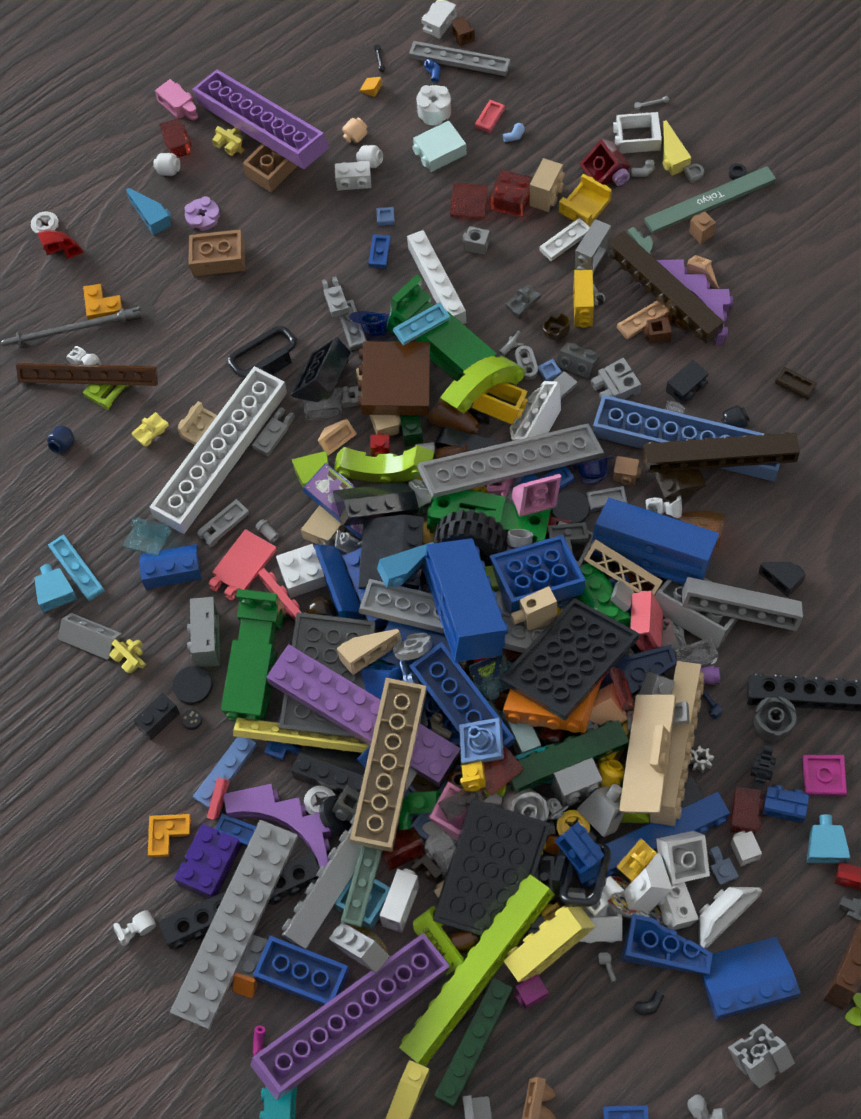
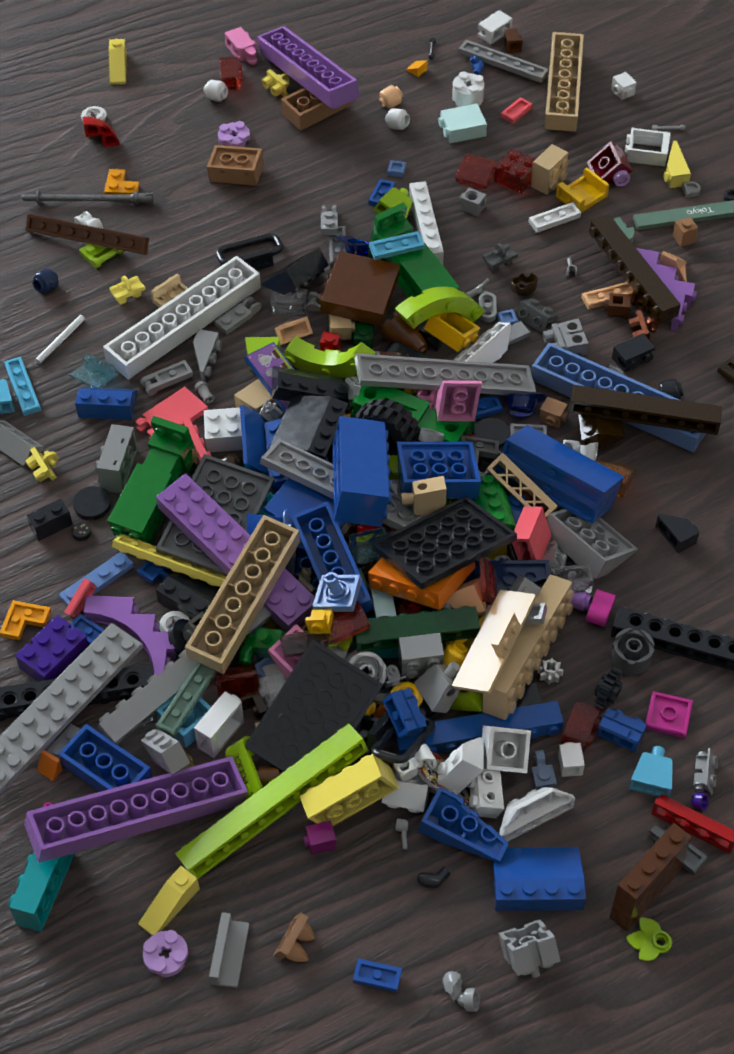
camera: 10 degrees right, 10 degrees down
(49, 151) = (117, 61): none -> light yellow slope
(97, 503) = (60, 339): none -> white bar
(150, 211) = (189, 124): dark azure slope -> none
(252, 480) = (205, 348): none -> light grey slope
(353, 175) = (378, 129): white brick -> none
(366, 649) = (259, 496): tan slope -> none
(399, 264) = (392, 199): none -> lime torso
(401, 566) = (311, 433): dark azure slope -> none
(415, 646) = (303, 501): light grey tile -> none
(473, 1044) = (249, 869): dark green brick -> none
(516, 133) = (537, 126): light blue arm -> none
(531, 72) = (564, 82): none -> tan brick
(583, 298) = (555, 264): yellow window -> none
(593, 62) = (623, 85): none -> white brick
(593, 246) = (575, 226): light grey window -> none
(622, 595) = (513, 506): light grey tile -> none
(636, 859) = (456, 737): yellow hips -> none
(645, 170) = (644, 179): light grey arm -> none
(683, 345) = (639, 322): none -> copper hips
(716, 709) = (577, 633): dark blue hand -> none
(731, 678) = (600, 608): none -> dark pink axle
(742, 604) = (629, 543): light grey brick -> none

